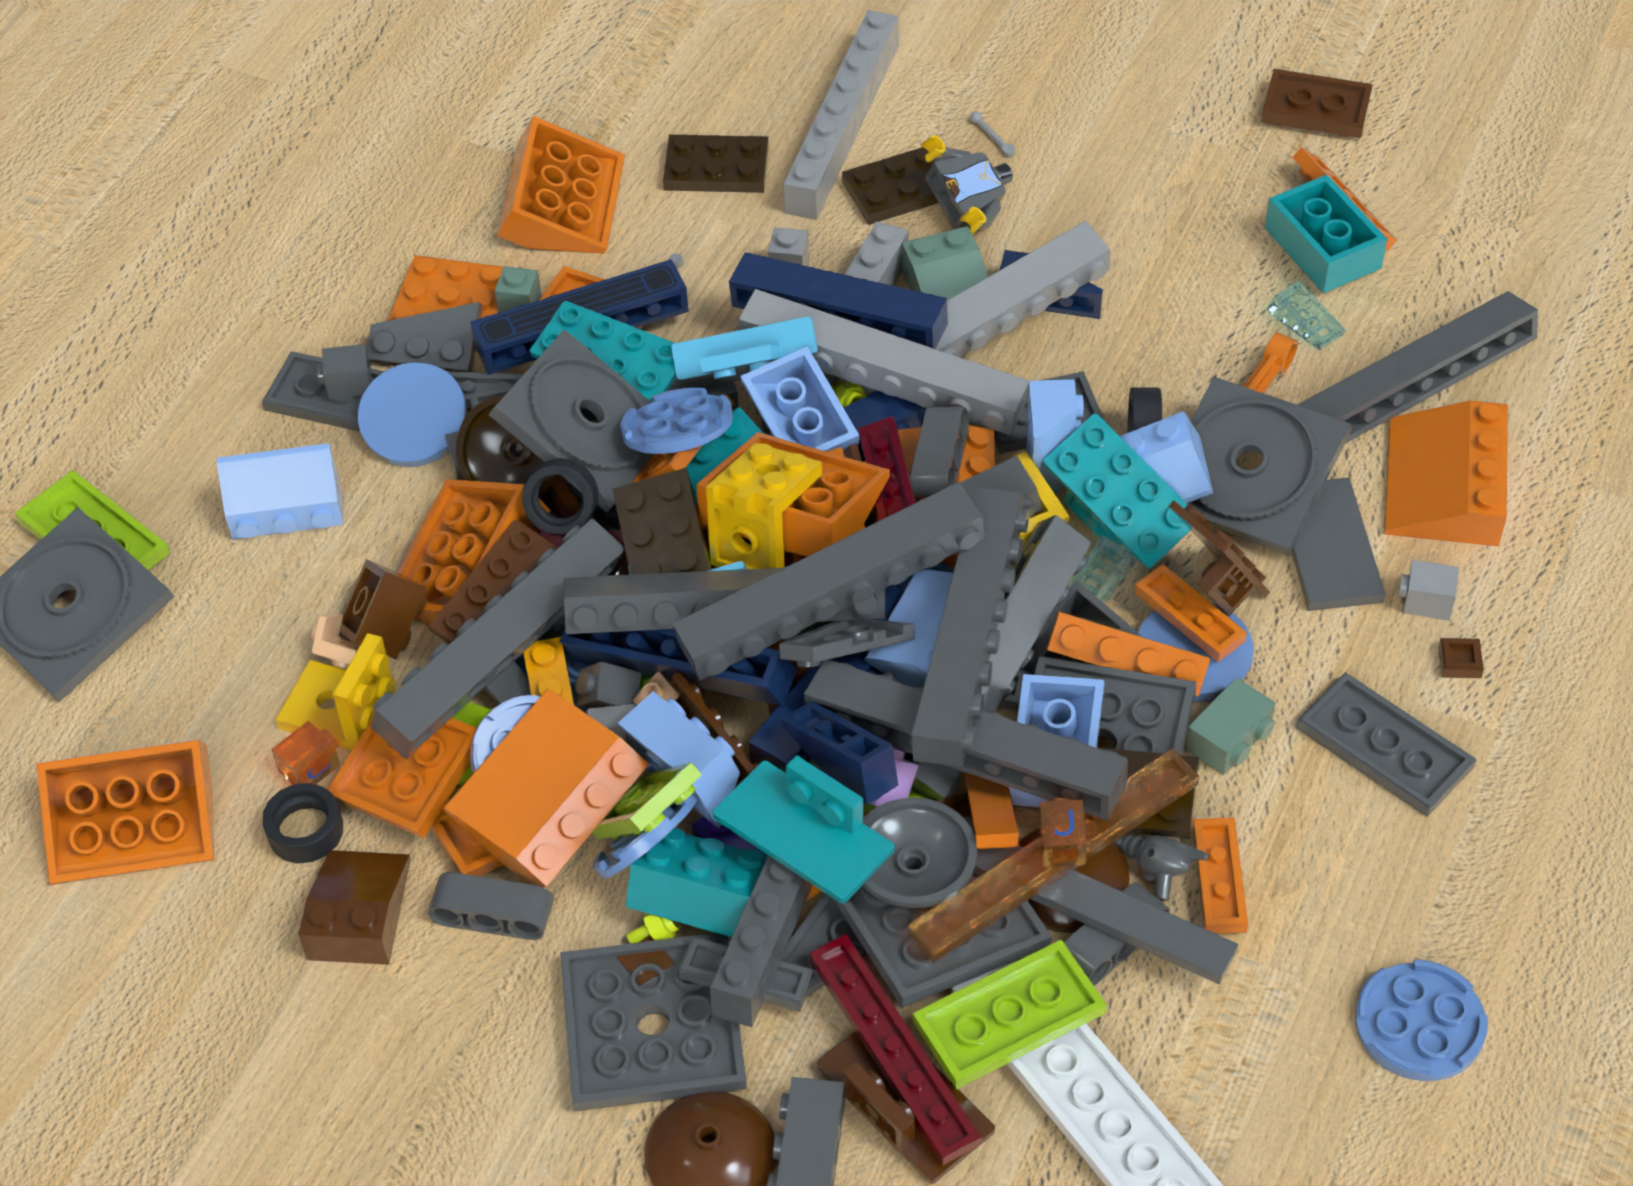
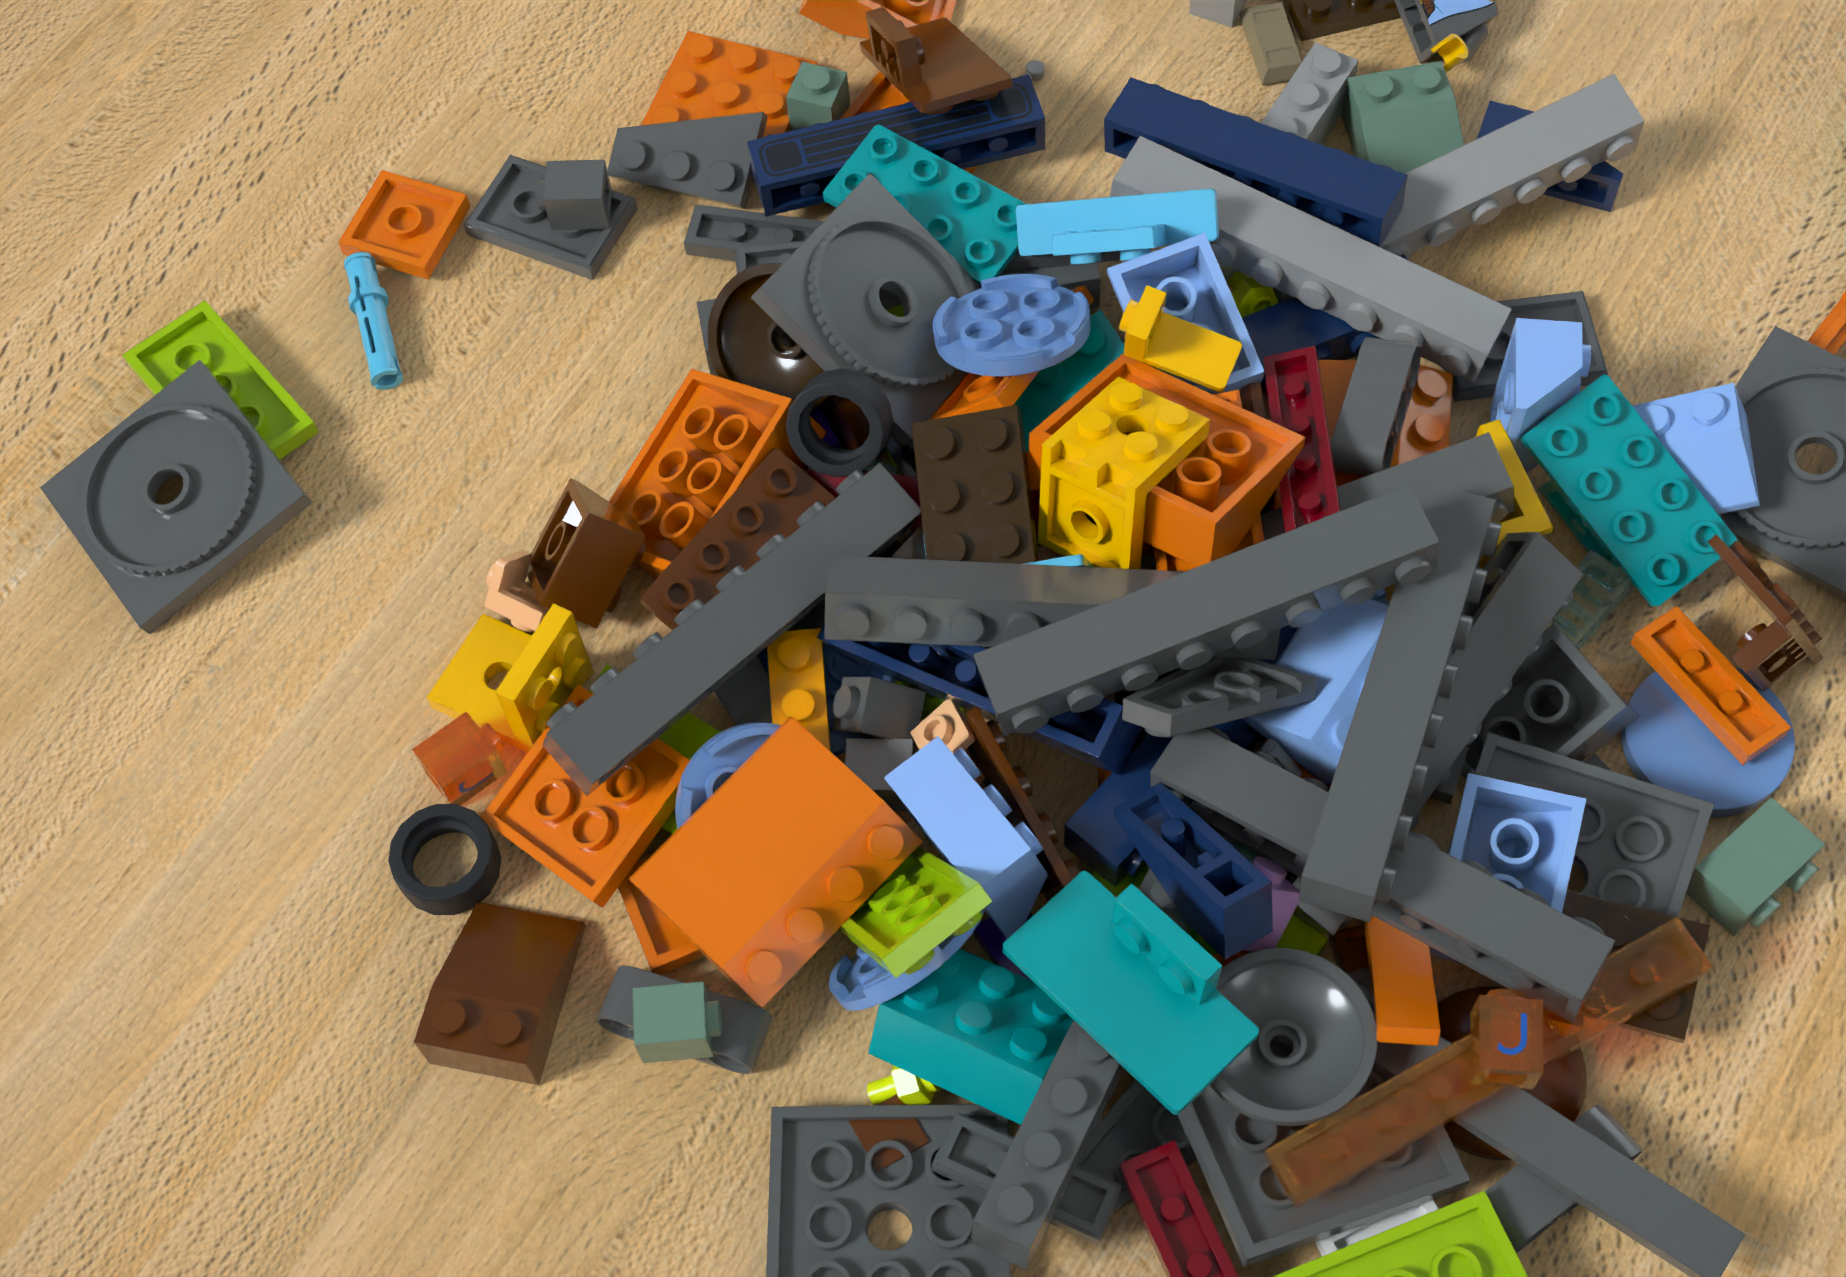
camera: 10 degrees right, 10 degrees up
(126, 811) = (213, 816): orange slope -> none
(198, 462) = (370, 305): none -> medium azure pin
(217, 405) = (405, 223): none -> orange plate
(280, 491) = (469, 363): light blue slope -> none
(410, 412) = (656, 263): medium blue tile -> none
(486, 898) = (675, 1022): none -> sand green brick
(598, 258) = (931, 62): none -> reddish brown bracket
(789, 246) = (1191, 70): light grey brick -> none
(793, 420) = (1176, 343): none -> yellow bracket
(845, 225) = (1271, 42): none -> dark tan tile
(1124, 650) = (1614, 741): orange plate -> none
(1144, 407) = (1668, 366): black tyre -> none
(1160, 859) = (1640, 1069): dark grey piece -> none
(1220, 876) = (1720, 1104): orange plate -> none

